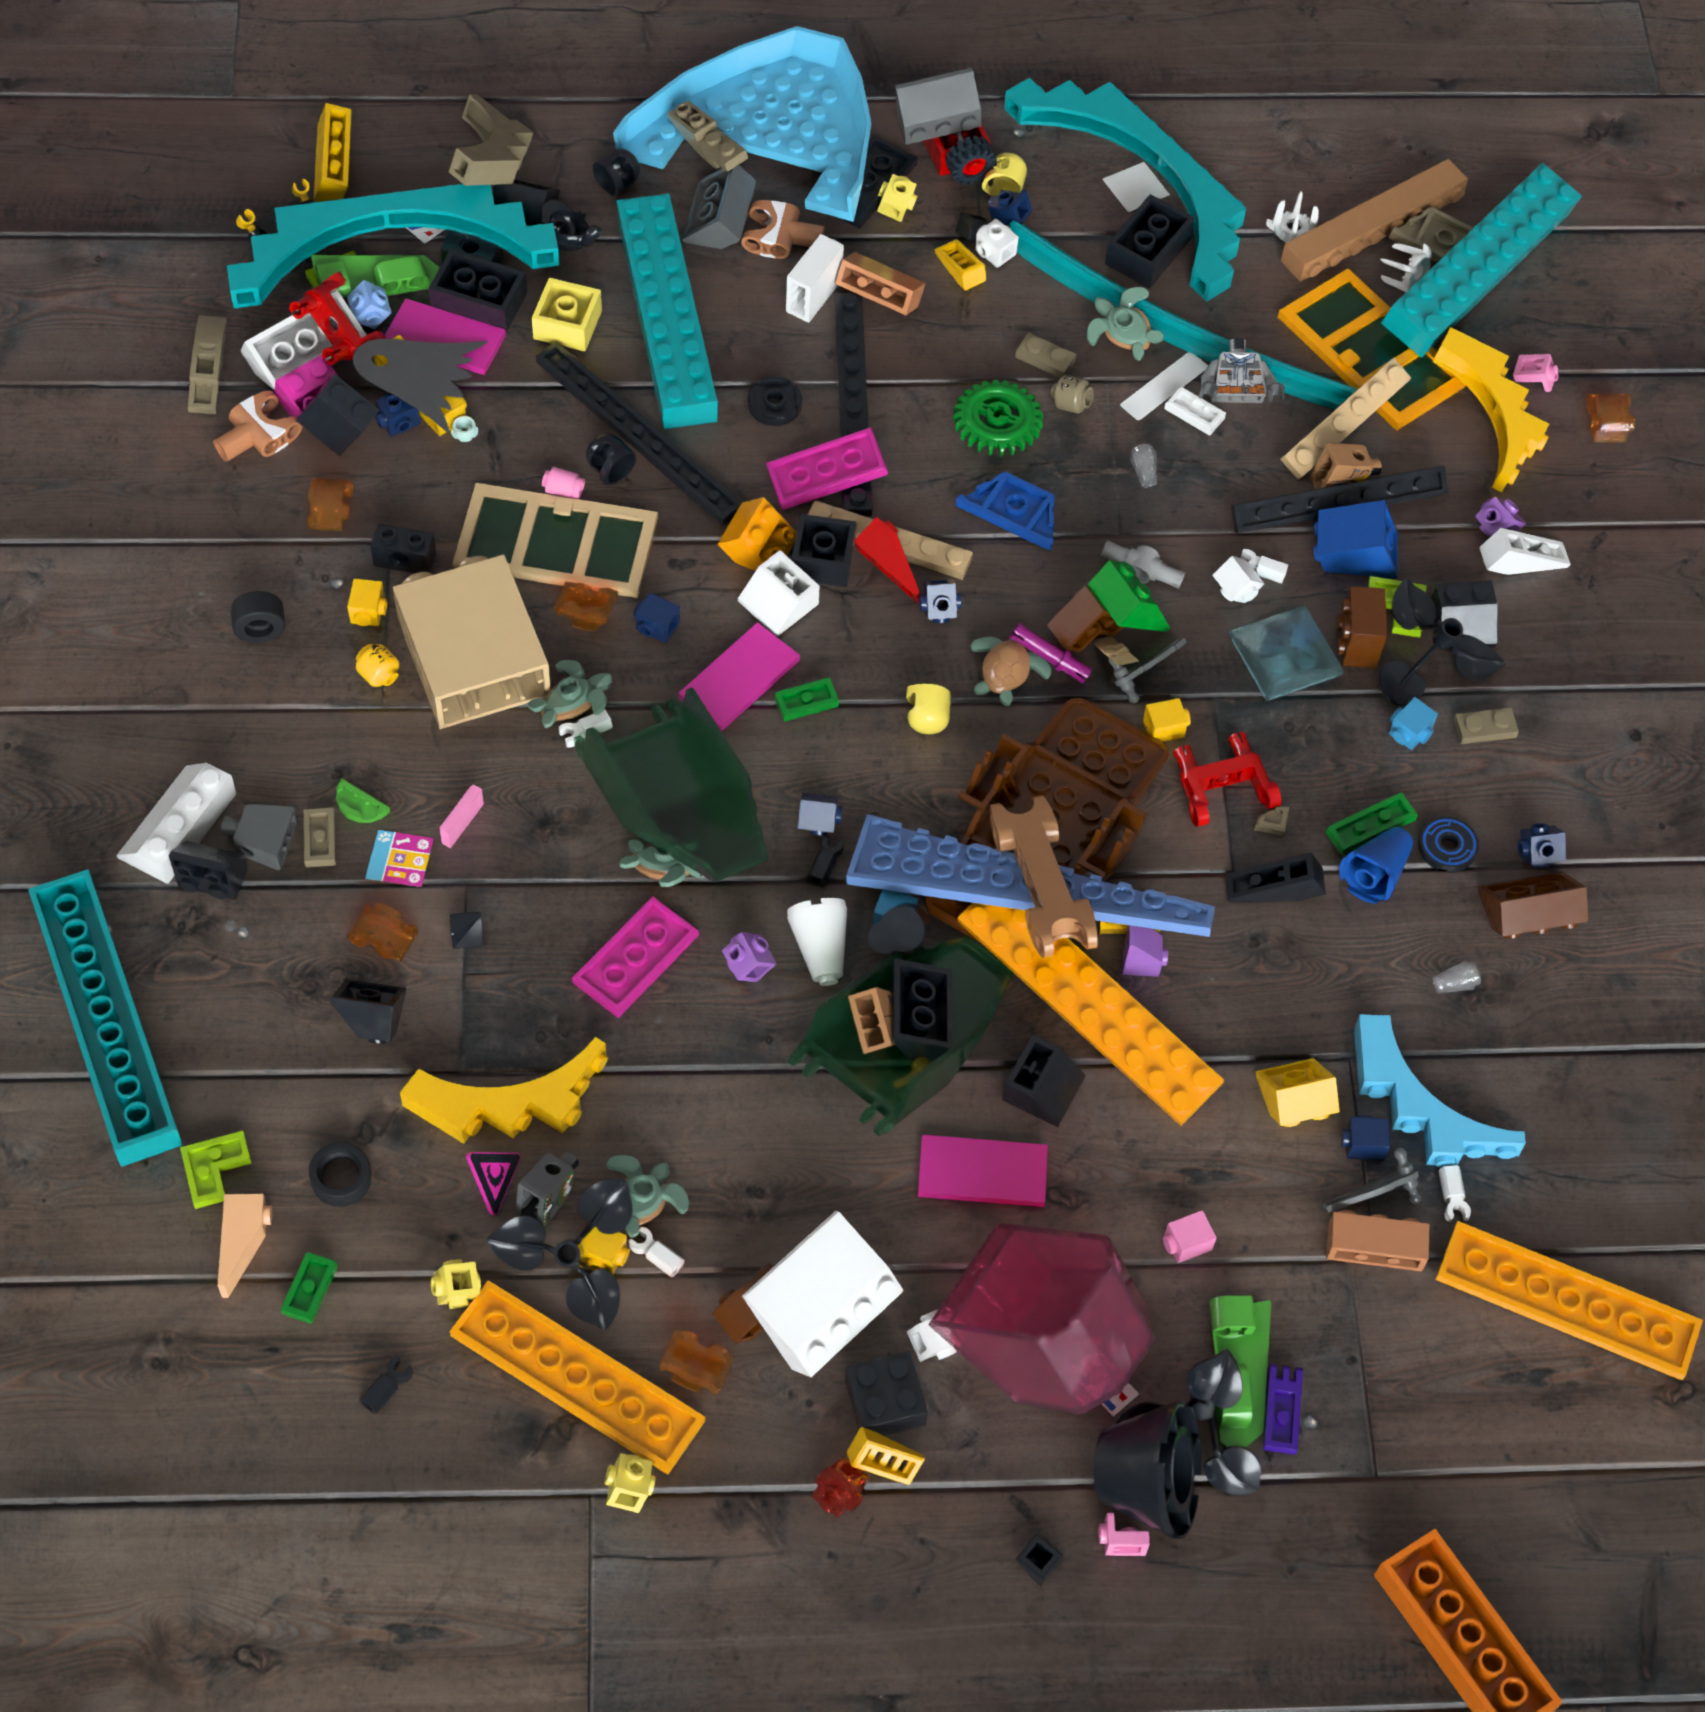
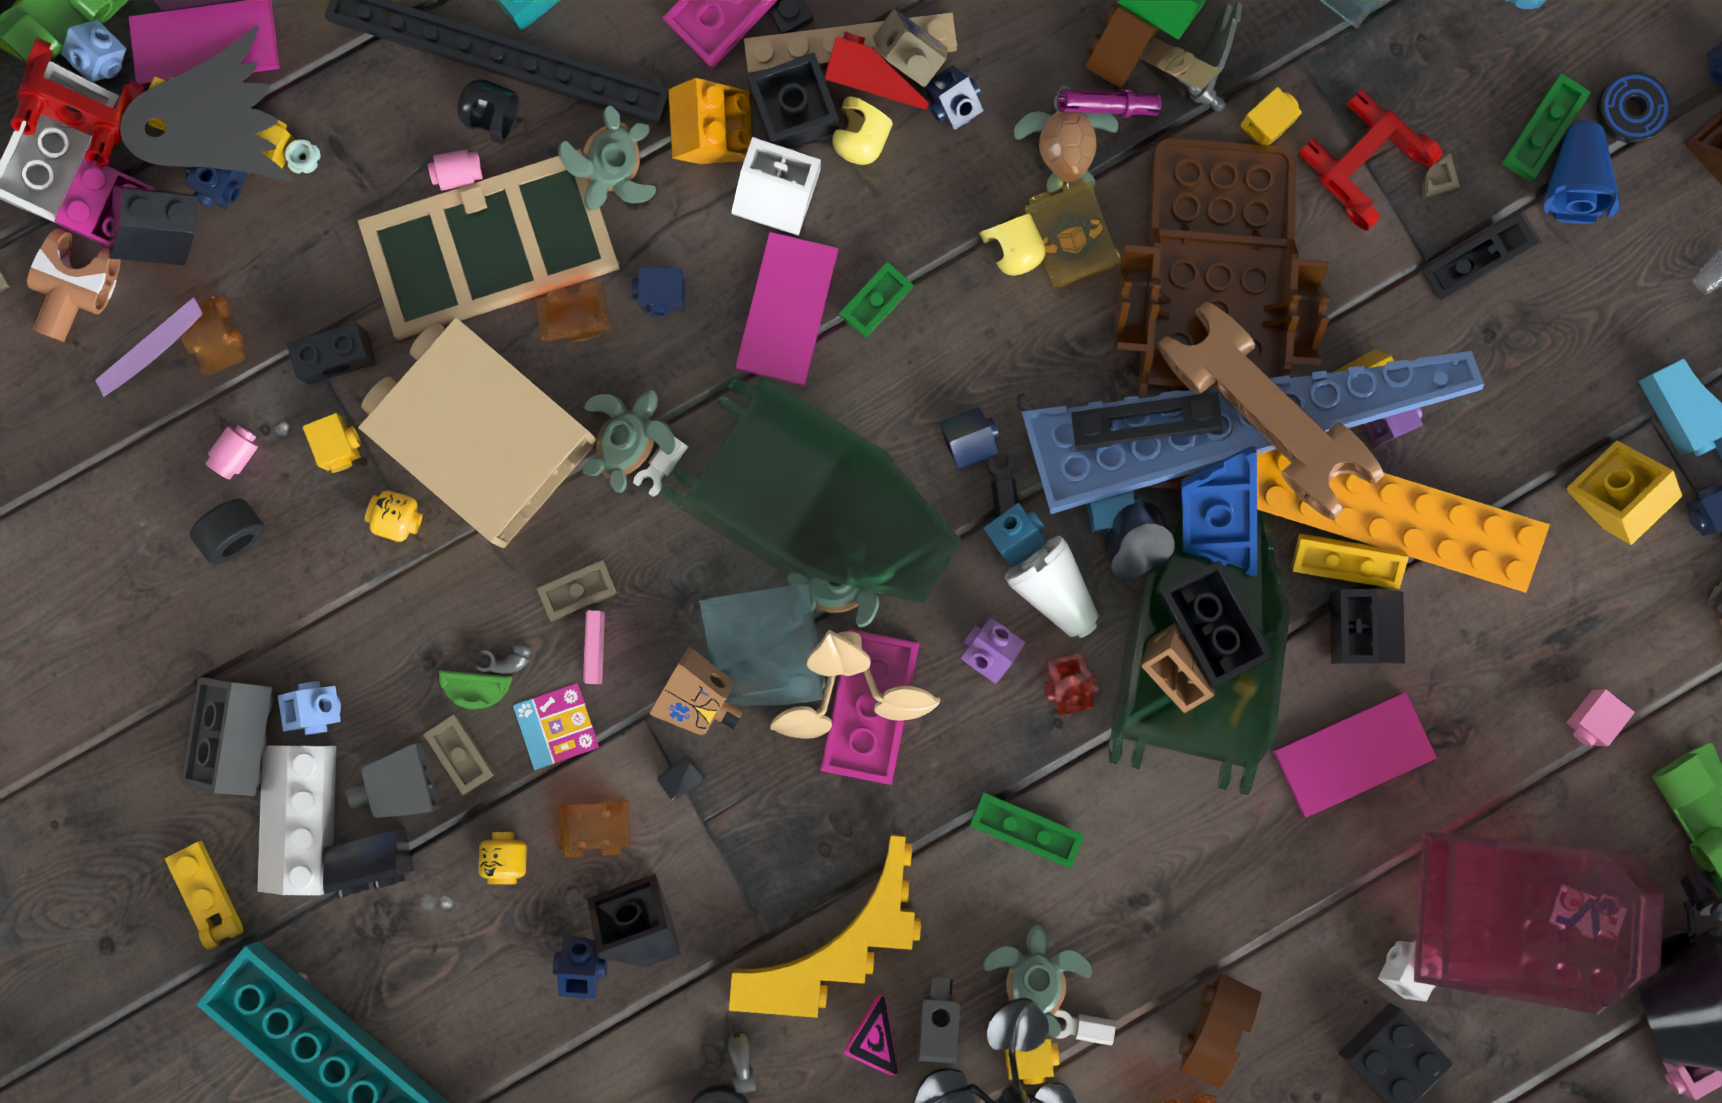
camera: 25 degrees left, 25 degrees up
(78, 836) = (204, 894): none -> yellow plate
(168, 744) = (227, 736): none -> dark grey slope
(236, 752) = (310, 708): none -> light blue brick
(283, 487) = (149, 348): none -> lavender sticker
(294, 575) = (232, 451): none -> bright pink brick
(303, 916) = (502, 859): none -> yellow head
(310, 1012) = (578, 968): none -> dark blue brick
(379, 1155) = (739, 1055): none -> dark grey arm
(398, 800) = (512, 663): none -> dark grey arm
(462, 774) = (577, 590): none -> dark tan plate
(513, 876) = (697, 696): none -> medium nougat torso
(583, 871) = (764, 645): none -> clear light blue slope
(627, 876) = (844, 656): none -> tan plant
(672, 526) = (609, 162): none -> sand green animal
(699, 1093) = (1026, 830): none -> green plate
(792, 1007) = (1070, 684): none -> clear red brick
(813, 885) = (1016, 534): none -> dark azure brick
(822, 1294) = (1287, 1000): white slope -> none
(862, 595) = (863, 136): none -> light yellow helmet
(927, 553) = (913, 50): none -> dark tan torso
(973, 942) = (1222, 511): none -> blue wing
(974, 721) = (1073, 234): none -> clear yellow panel
(991, 861) = (1200, 416): none -> black container
(1043, 1023) = (1349, 561): none -> yellow plate

